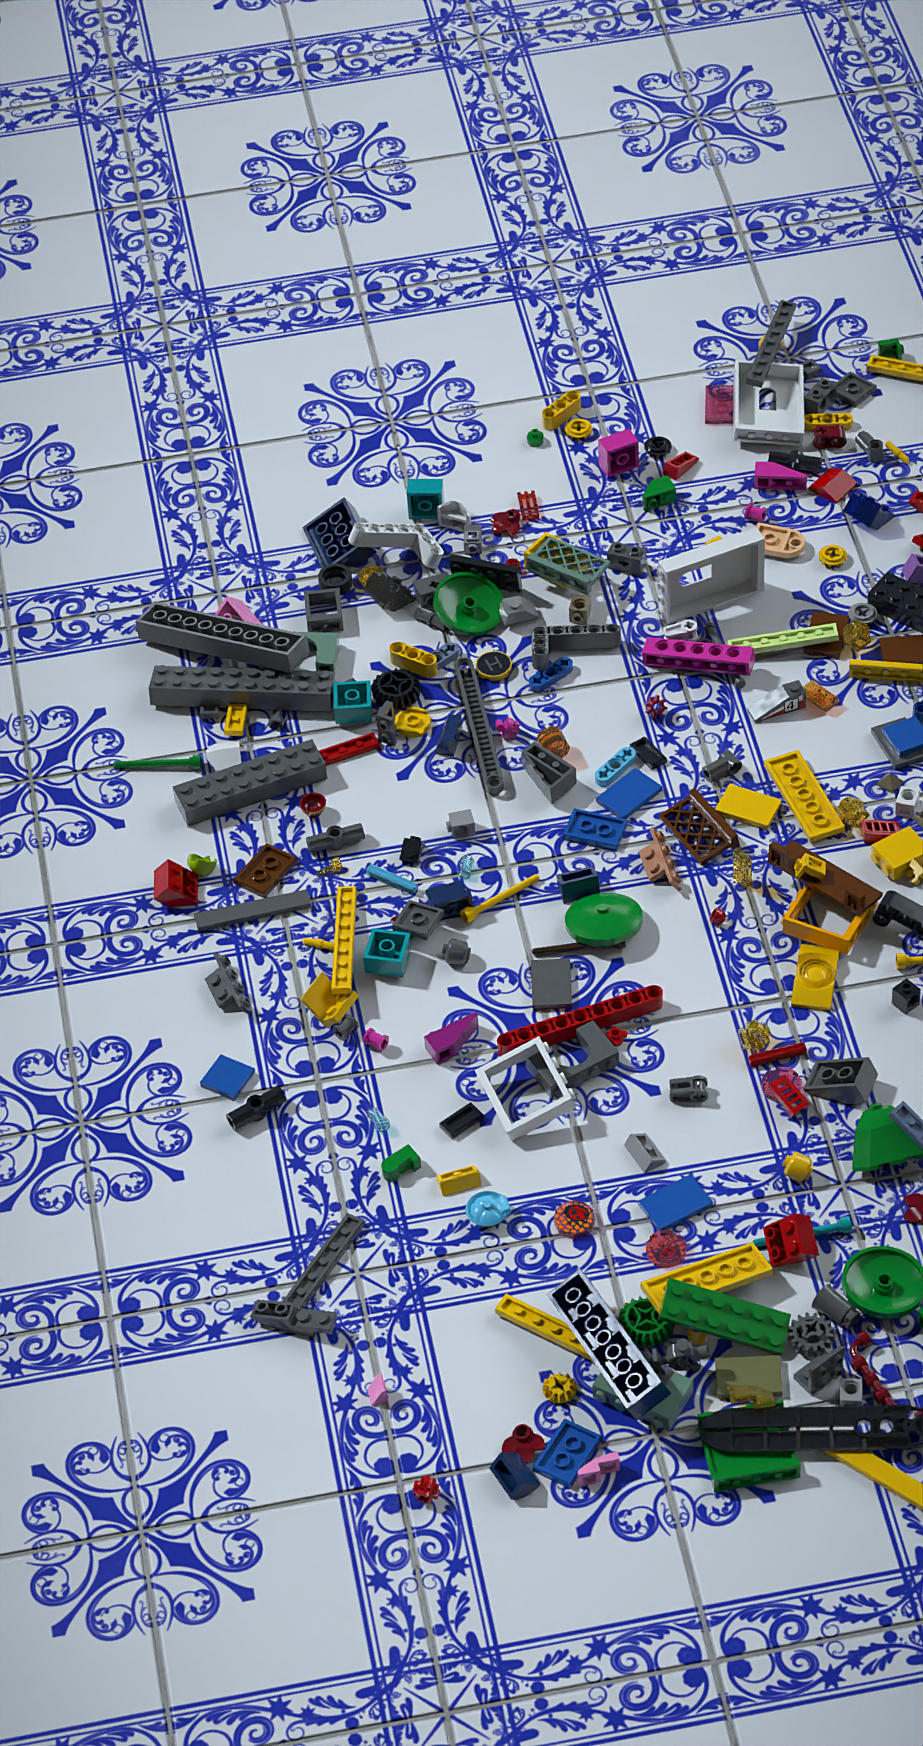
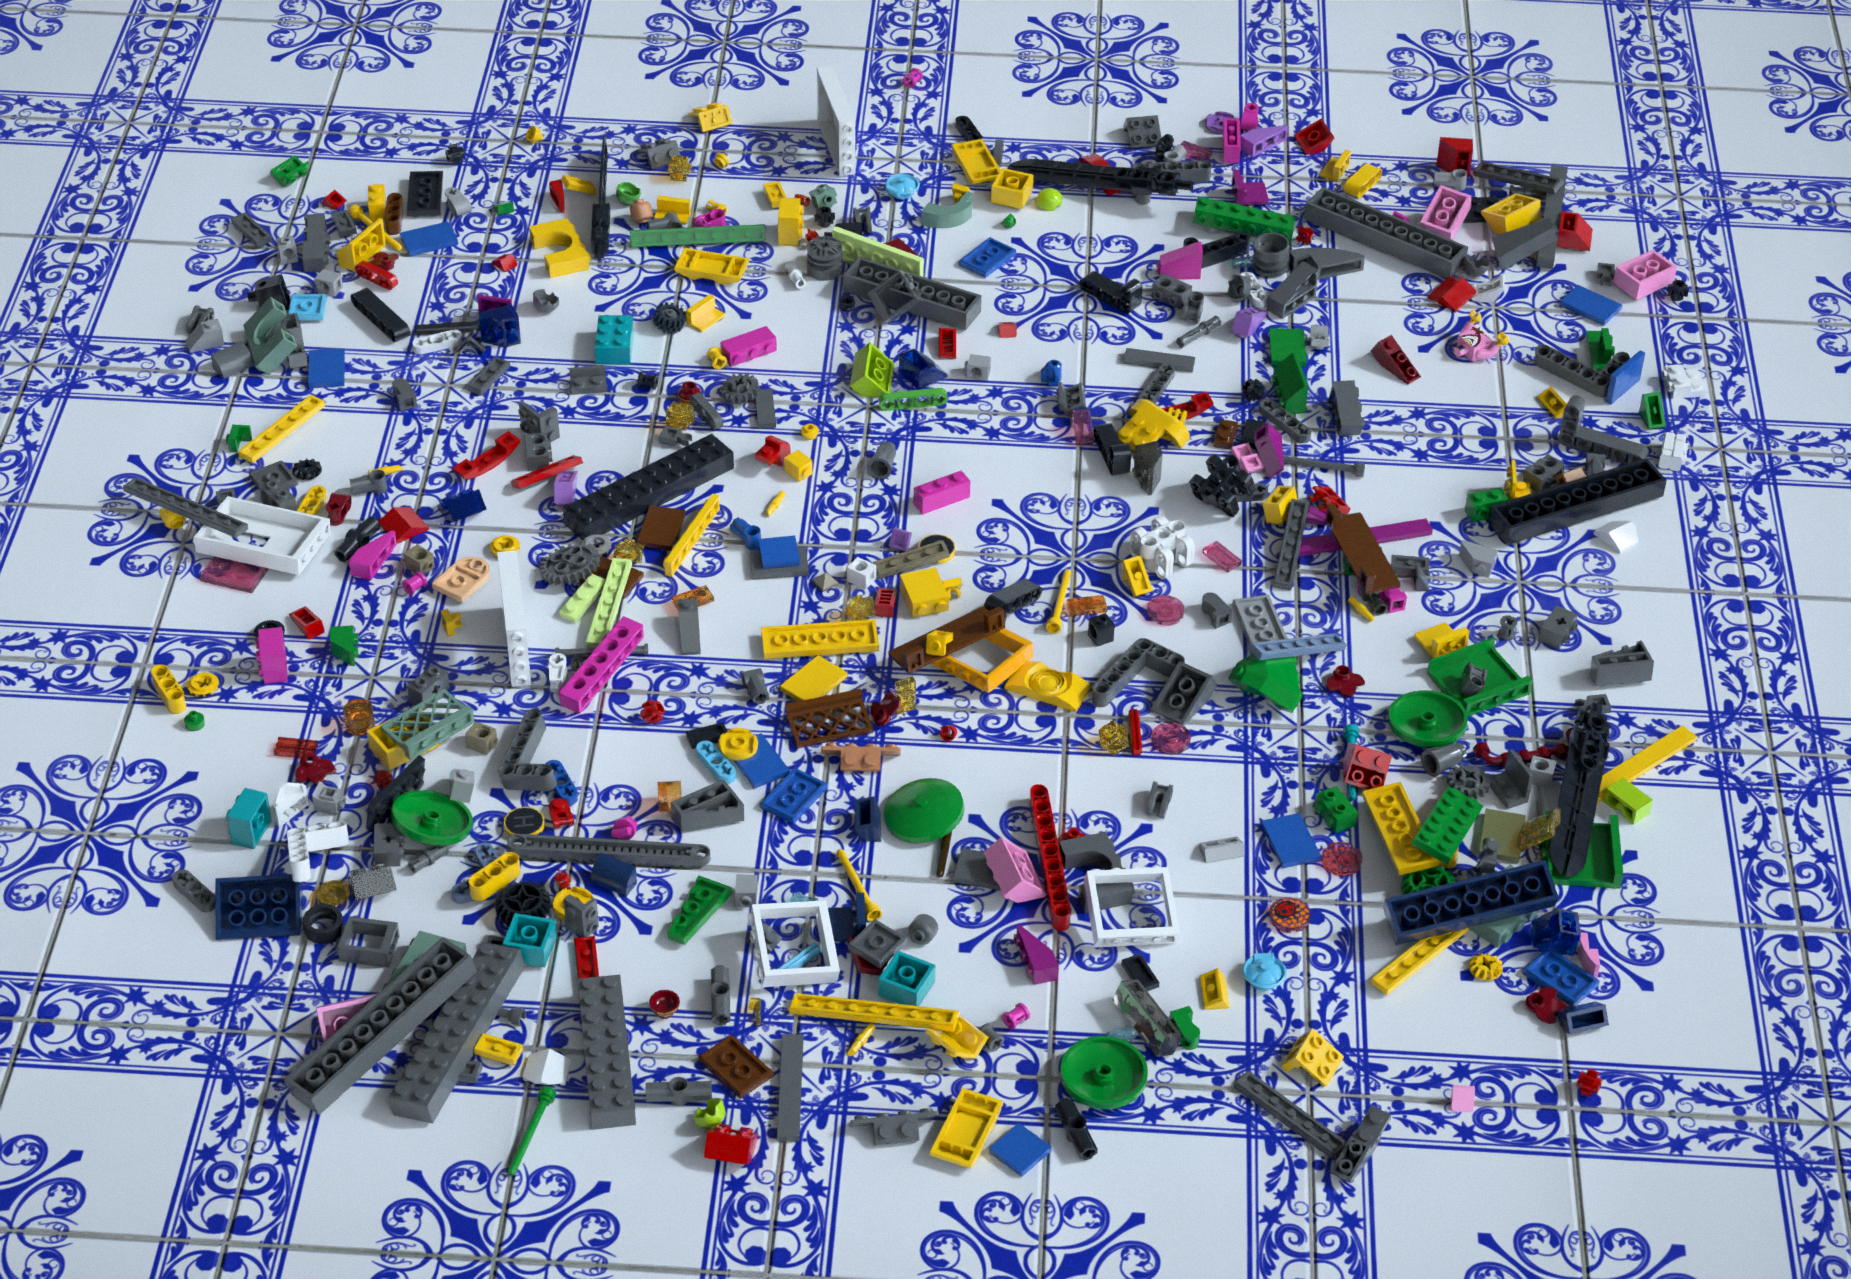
camera: 80 degrees left, 5 degrees down
(222, 839) = (678, 1091): none -> dark grey piece
(235, 1033) = (967, 1128): none -> yellow slope
(322, 1111) = (1104, 1072): none -> green dish
(349, 491) = (195, 898): none -> dark grey beam
(391, 1267) = (1314, 1056): none -> yellow bracket
(396, 1129) = (1147, 1018): none -> clear smoke brick
(412, 889) = (793, 976): none -> white window
(429, 799) = (697, 910): none -> green wing
(433, 705) = (563, 879): none -> red plate
(513, 684) = (560, 813): none -> red plate
(544, 997) = (1014, 872): none -> bright pink slope
(573, 528) = (358, 716): none -> clear orange piece
(613, 1434) = (1556, 932): none -> clear blue slope
(638, 773) = (738, 744): none -> yellow tile
(719, 862) = (885, 709): none -> dark red plate
(726, 1229) = (1335, 809): none -> green brick
(780, 623) = (583, 598): none -> yellowish green plate
(785, 506) = (419, 559): none -> dark tan brick
(798, 1166) = (1279, 743): yellow head -> none
(803, 1103) = (1196, 731): red slope -> none
(822, 601) = (570, 564): none -> dark grey gear
(836, 1479) = (1629, 800): none -> lime brick
(858, 1027) = (1119, 675): none -> dark grey beam
(869, 407) = (312, 472): none -> black gear

